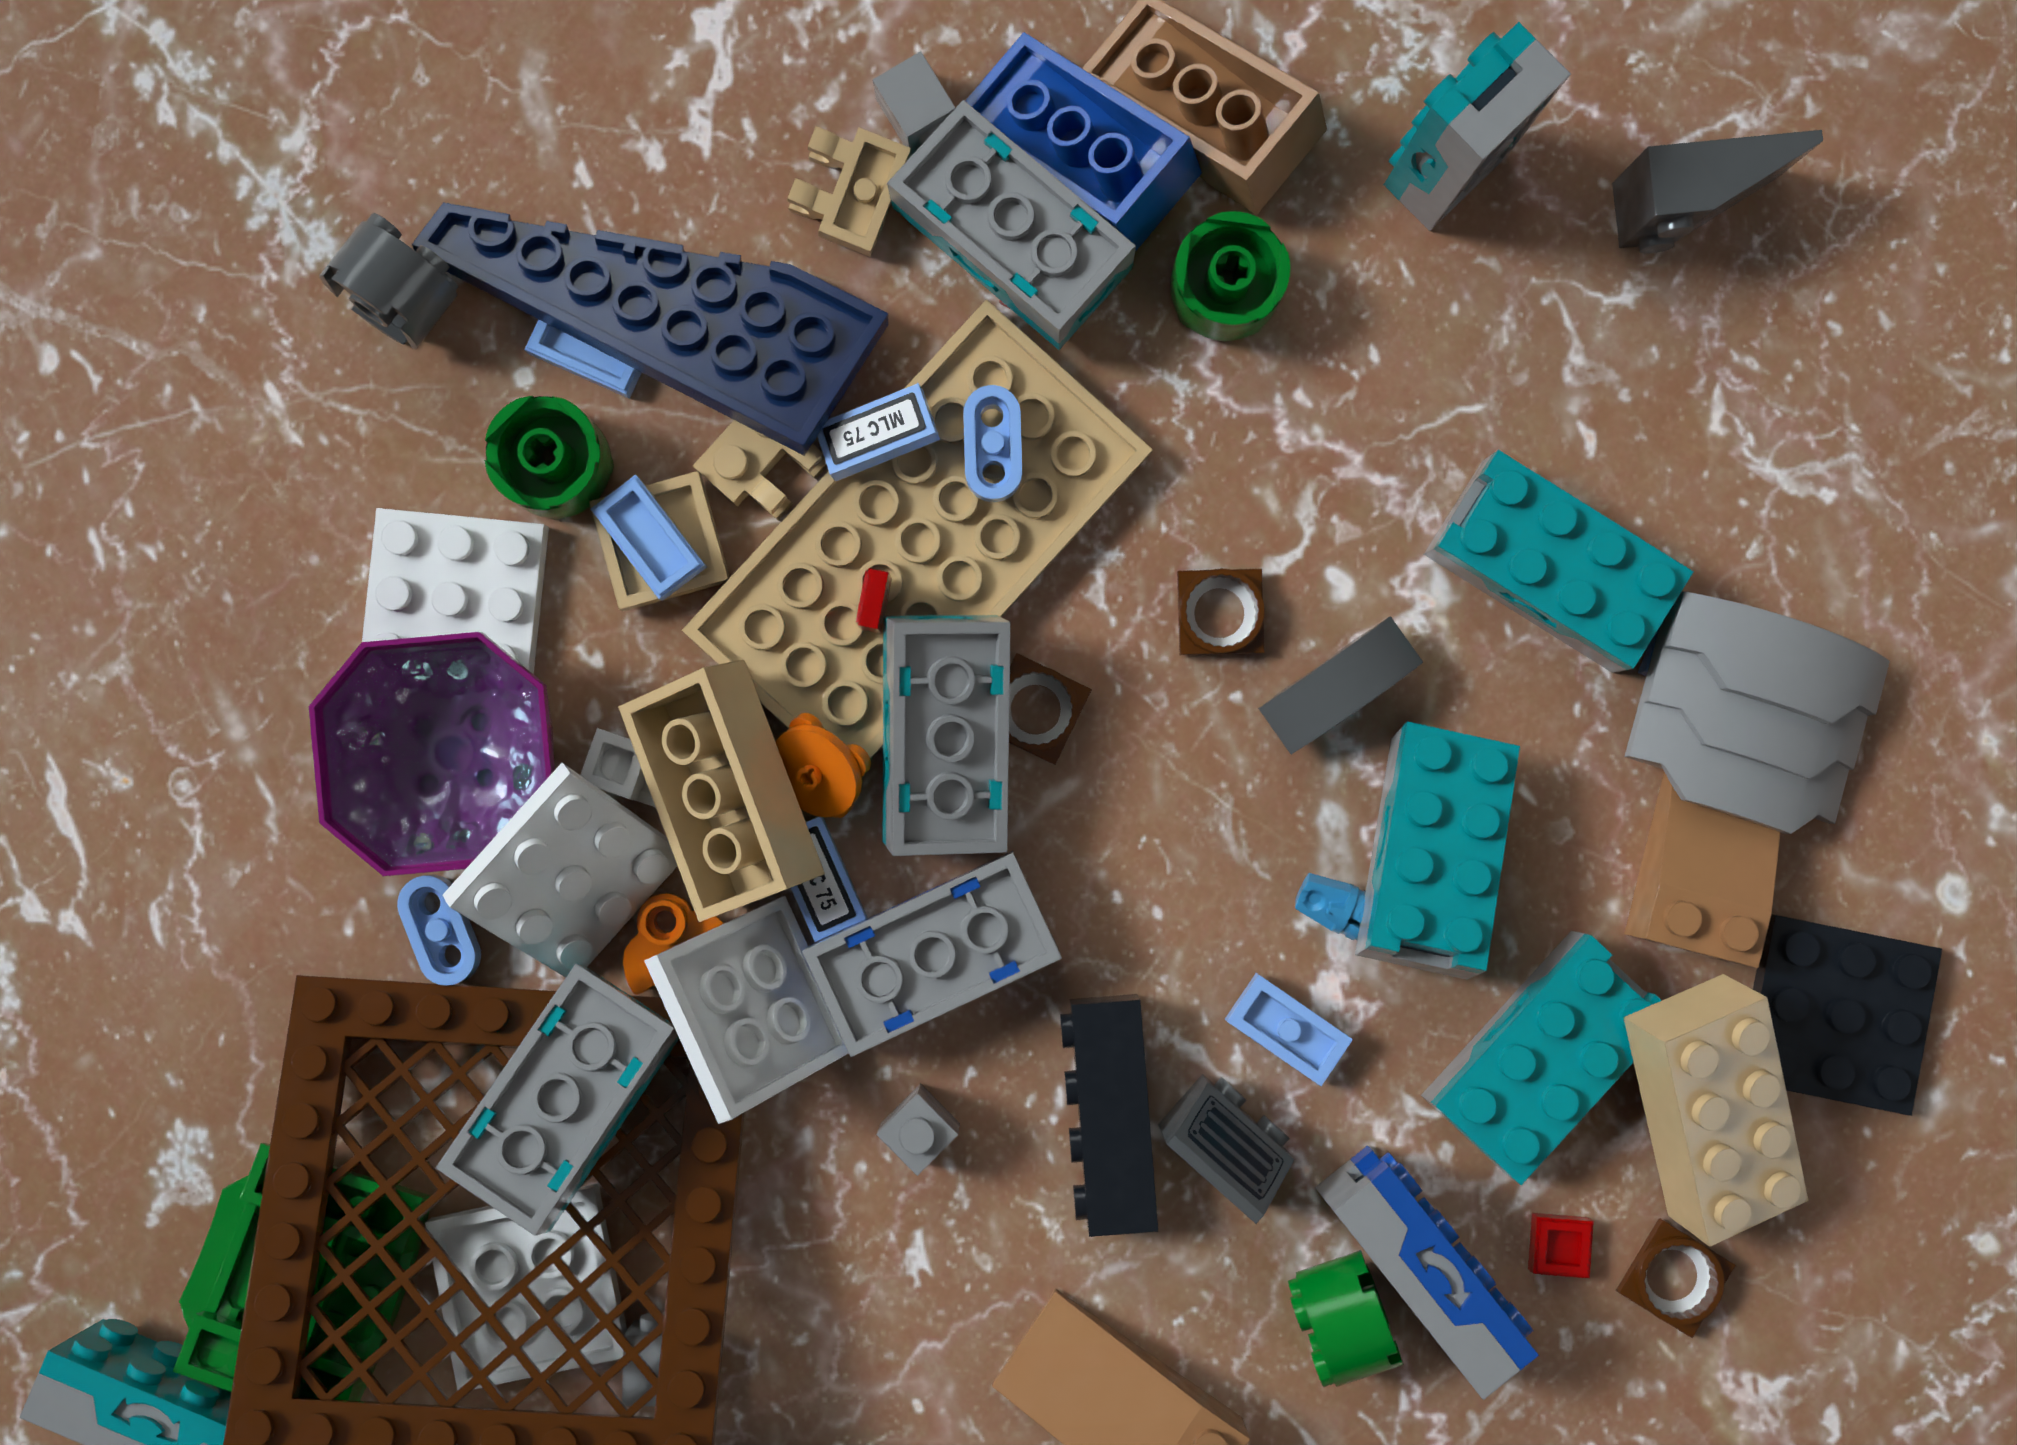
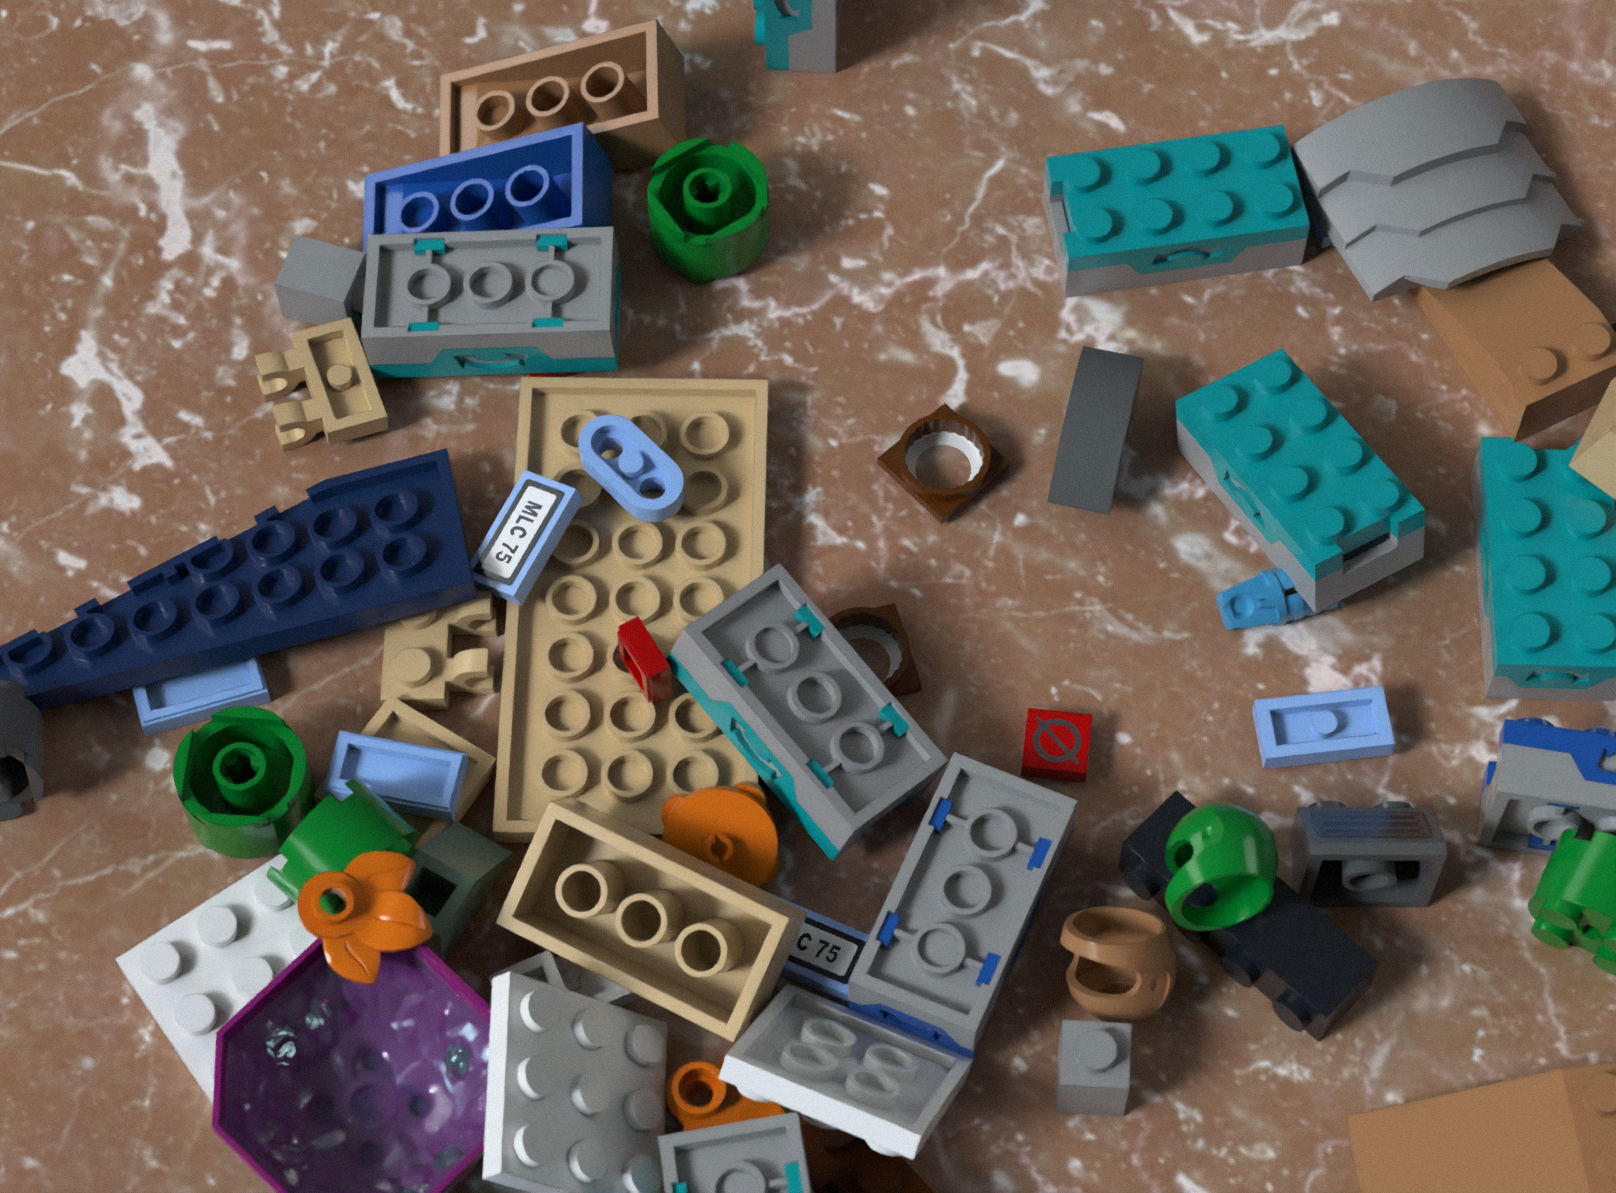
camera: 40 degrees left, 25 degrees down
(522, 651) = (375, 913): none -> orange plate
(558, 580) = (336, 835): none -> green brick
(619, 644) = (454, 880): none -> sand green slope
(996, 1079) = (1119, 963): none -> medium nougat helmet
(1105, 884) = (1056, 745): none -> red tile
(1118, 1094) = (1229, 850): none -> green helmet

